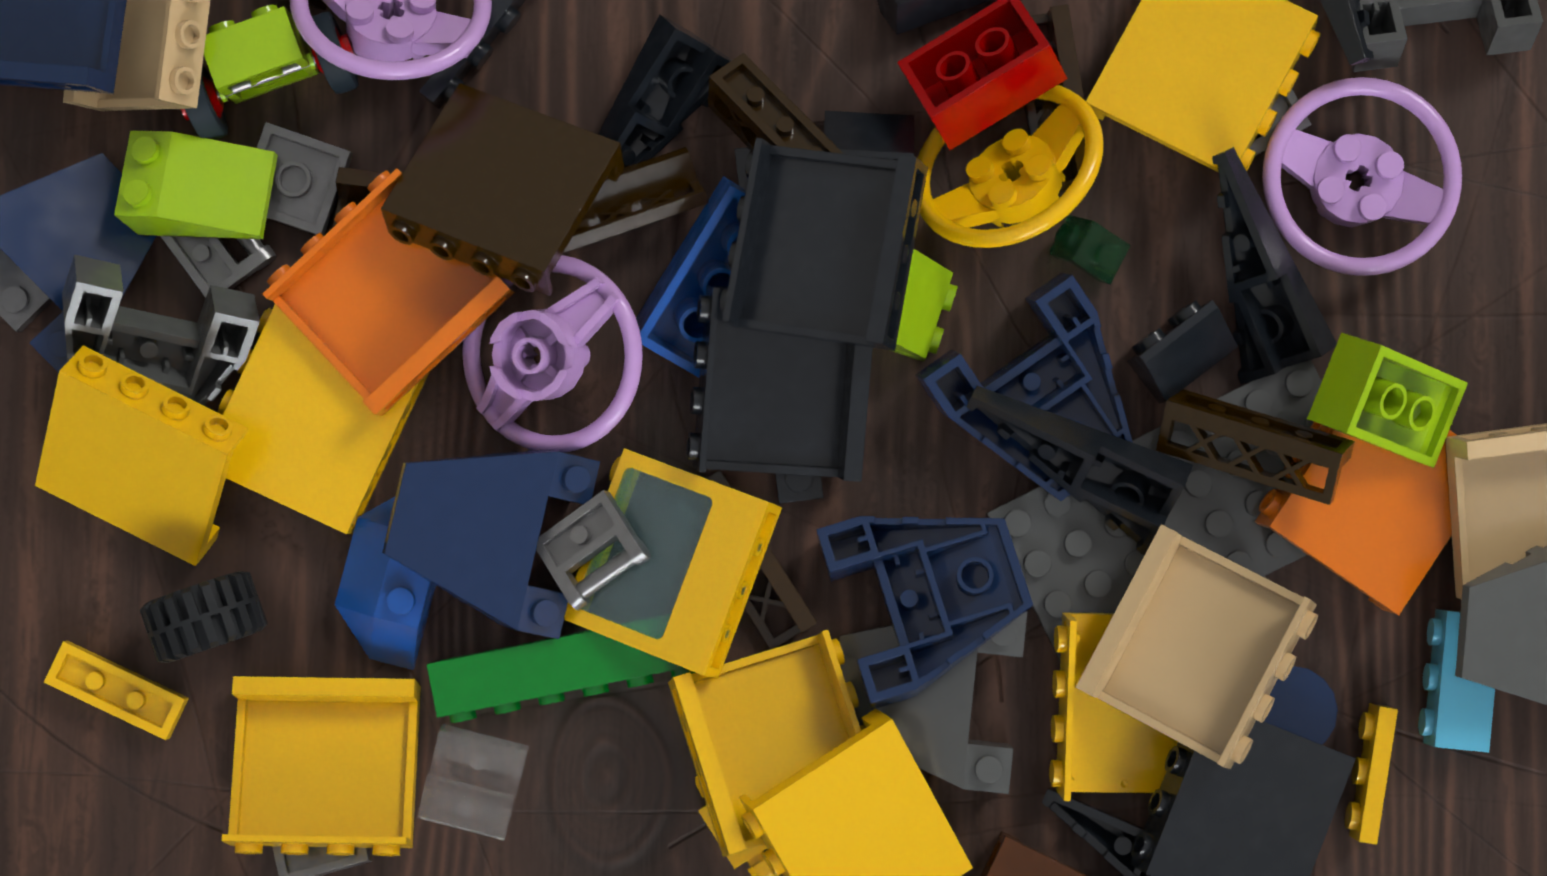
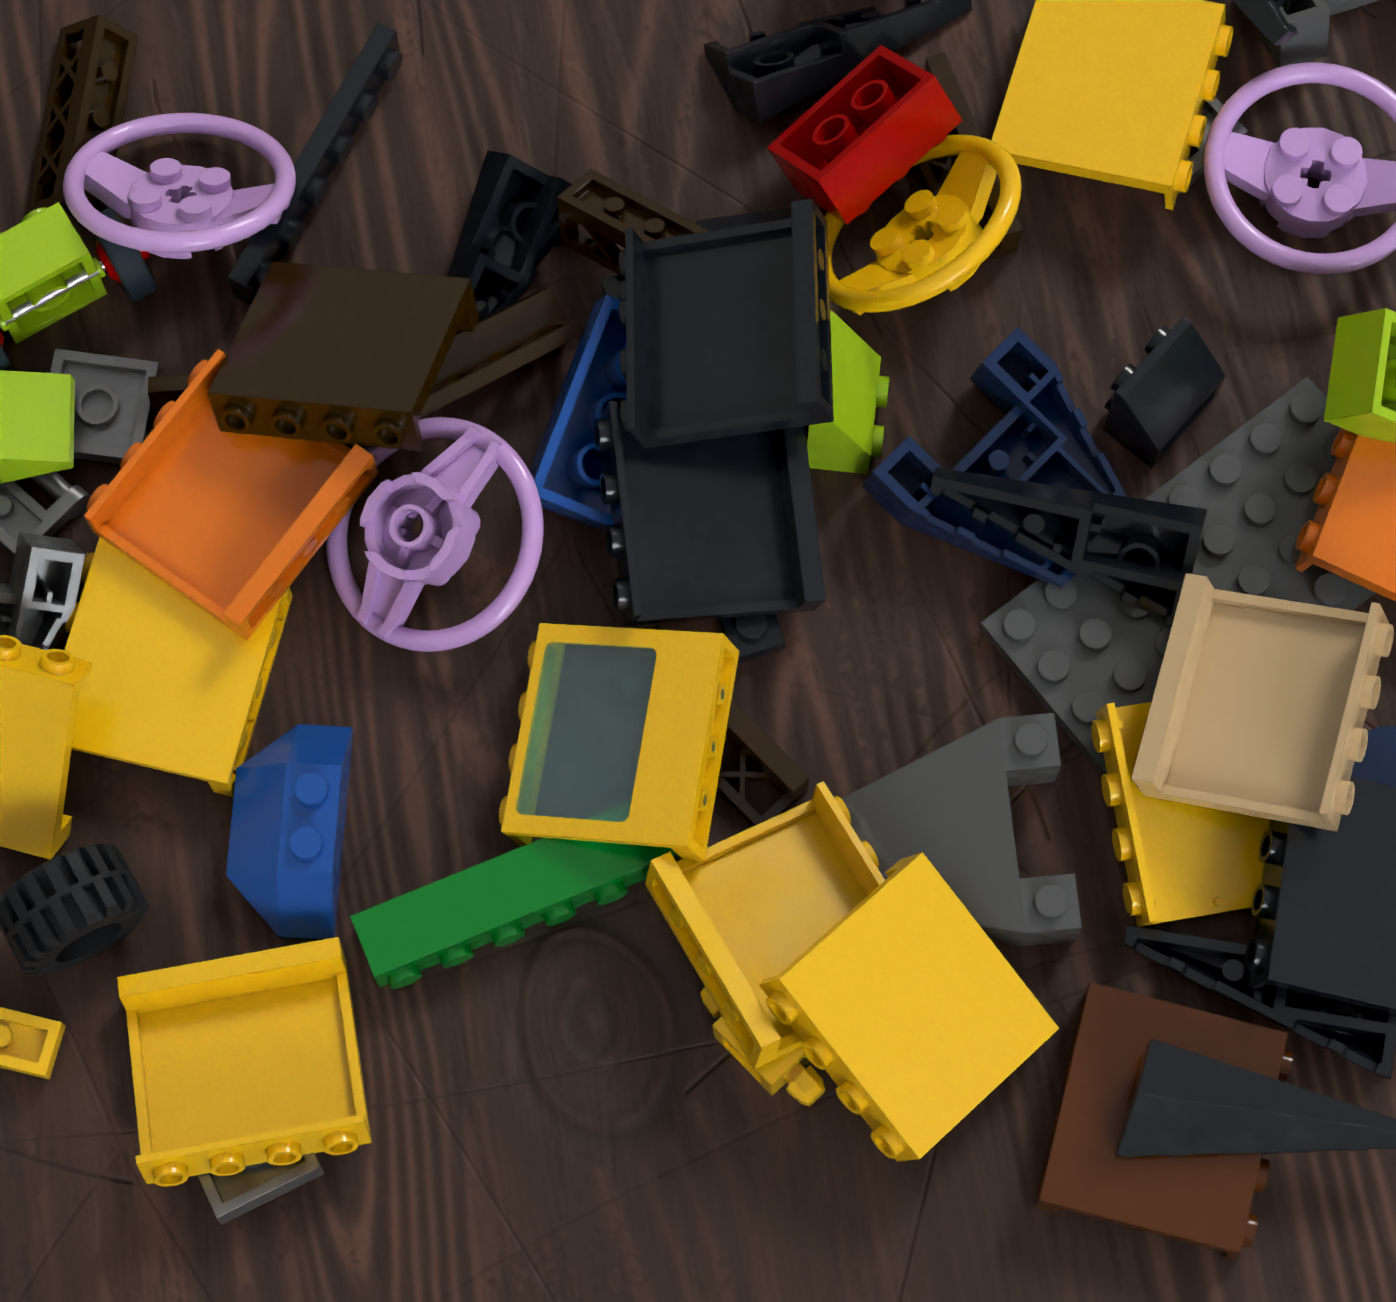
camera: 15 degrees left, 15 degrees down
(473, 782) = (431, 1058): clear slope -> none
(478, 527) = (384, 737): dark blue wedge -> none
(583, 537) = (511, 727): flat silver plate -> none
(943, 587) = (945, 707): dark blue wedge -> none
(1089, 248) = (1032, 306): clear green bracket -> none
(1258, 429) = (1271, 451): dark brown fence -> none
(1271, 301) = (1253, 324): black wedge -> none

